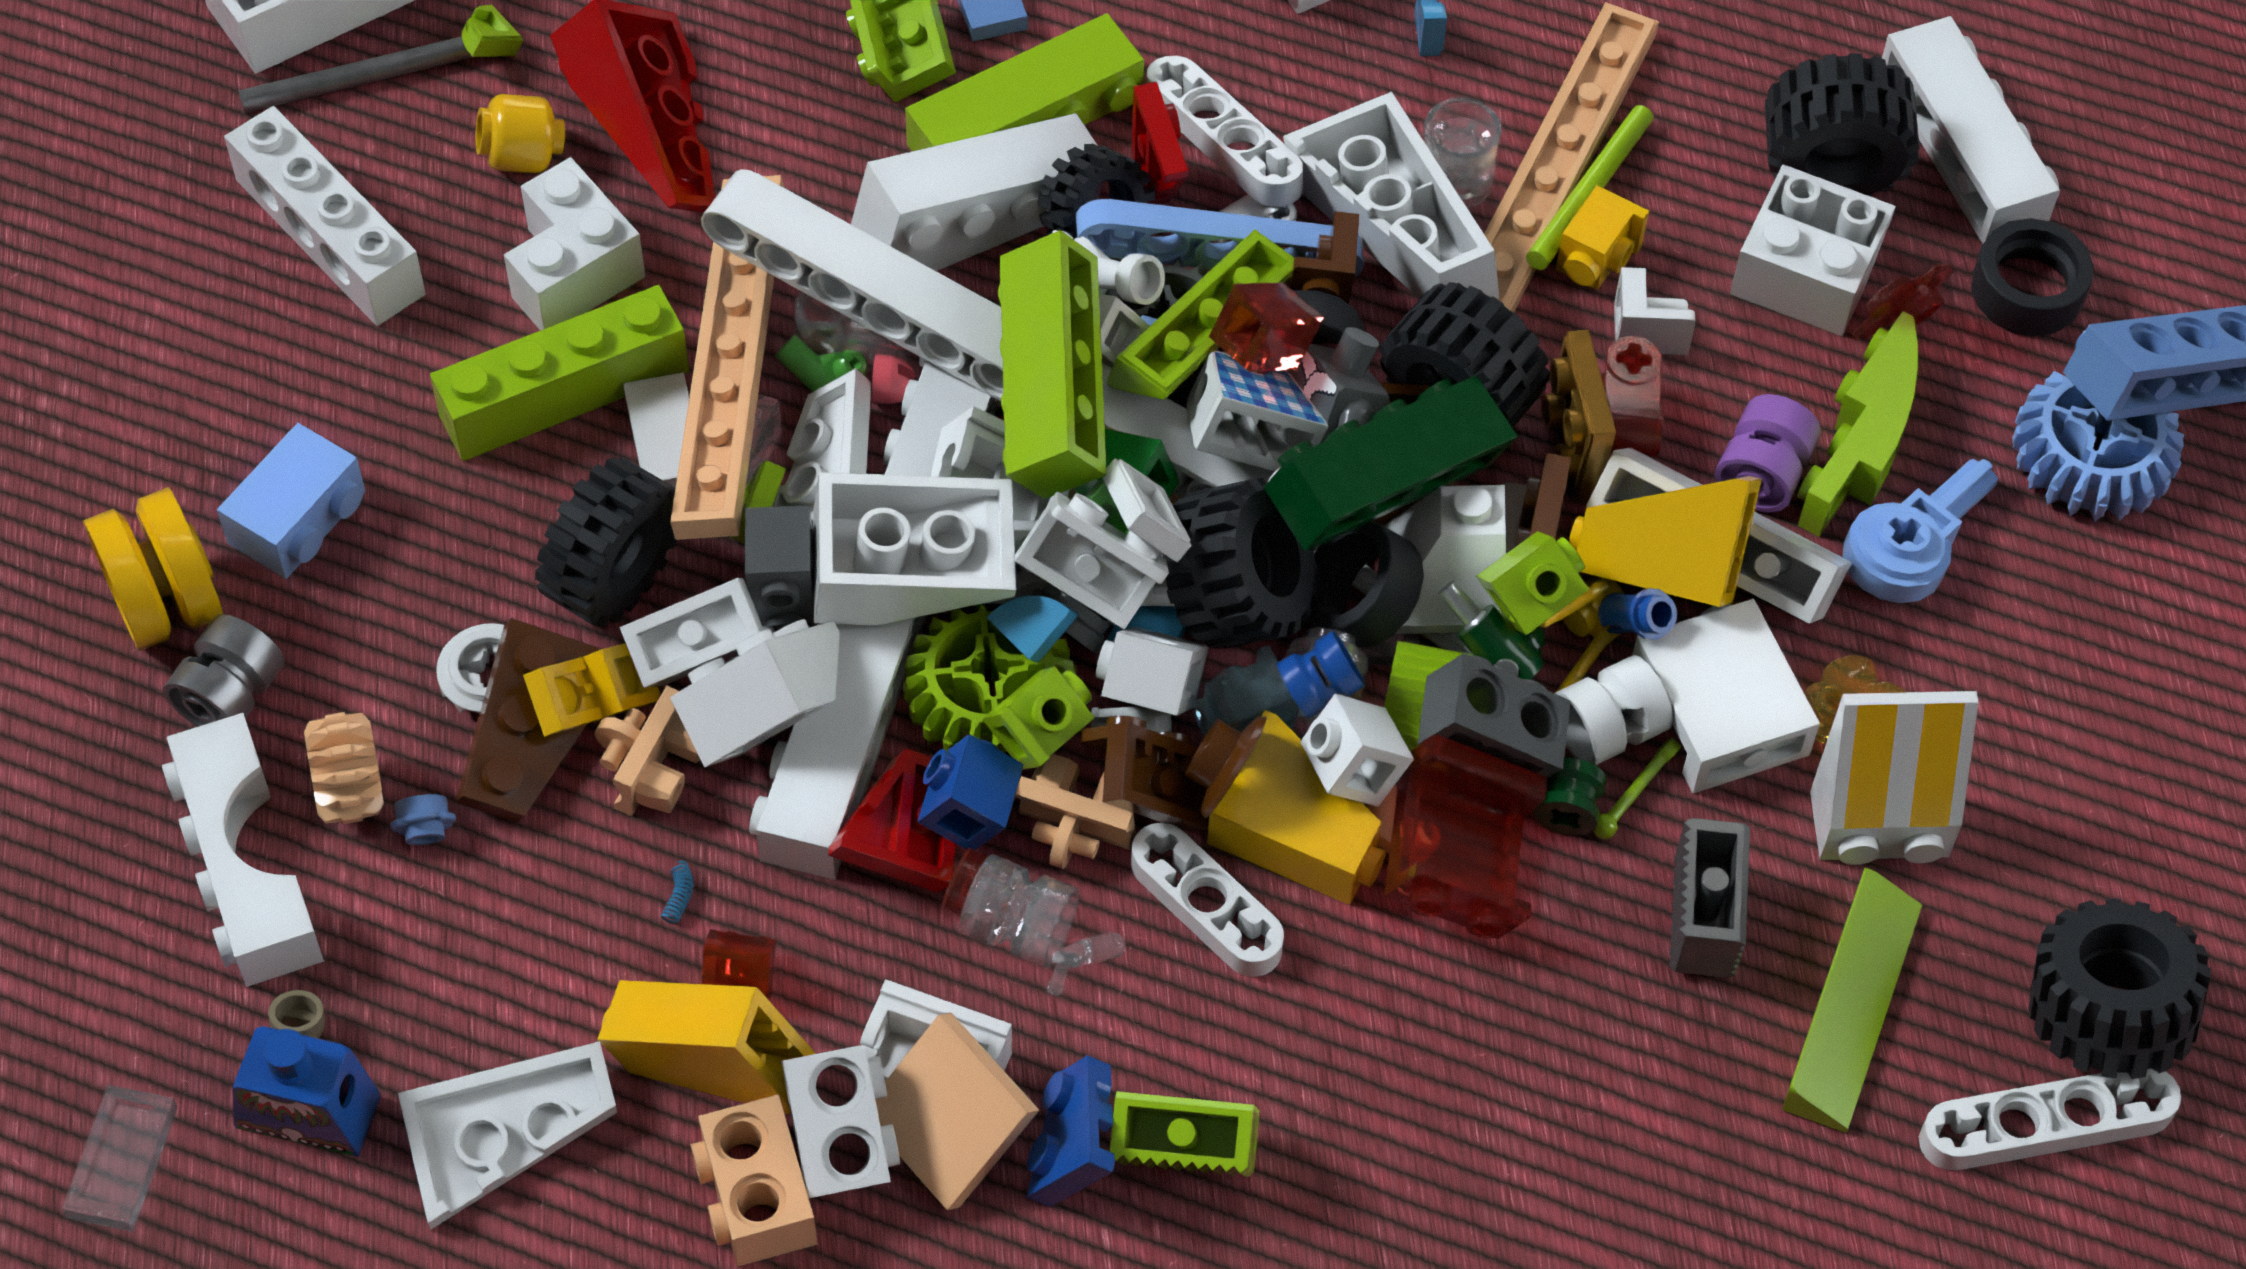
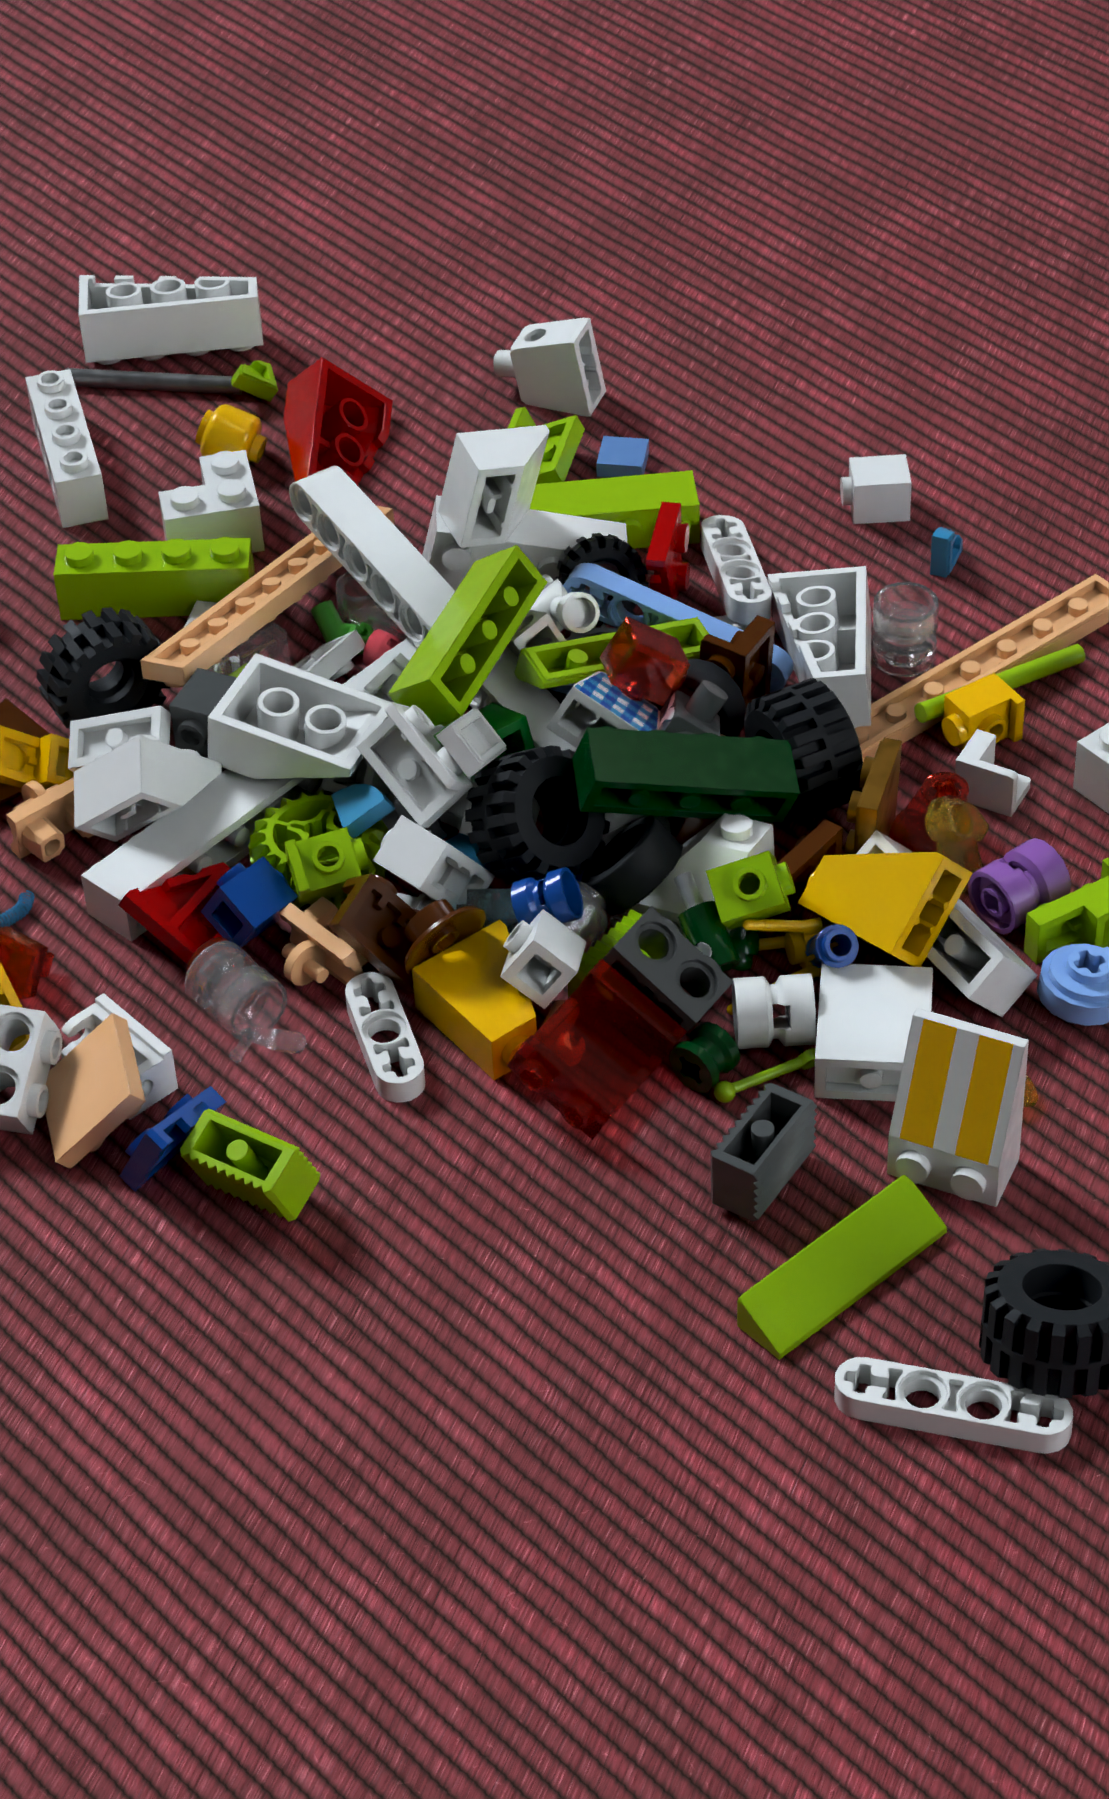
camera: 30 degrees right, 15 degrees down
(947, 138) = (491, 483): none -> white slope
(1678, 412) = (956, 830): none -> clear yellow plate

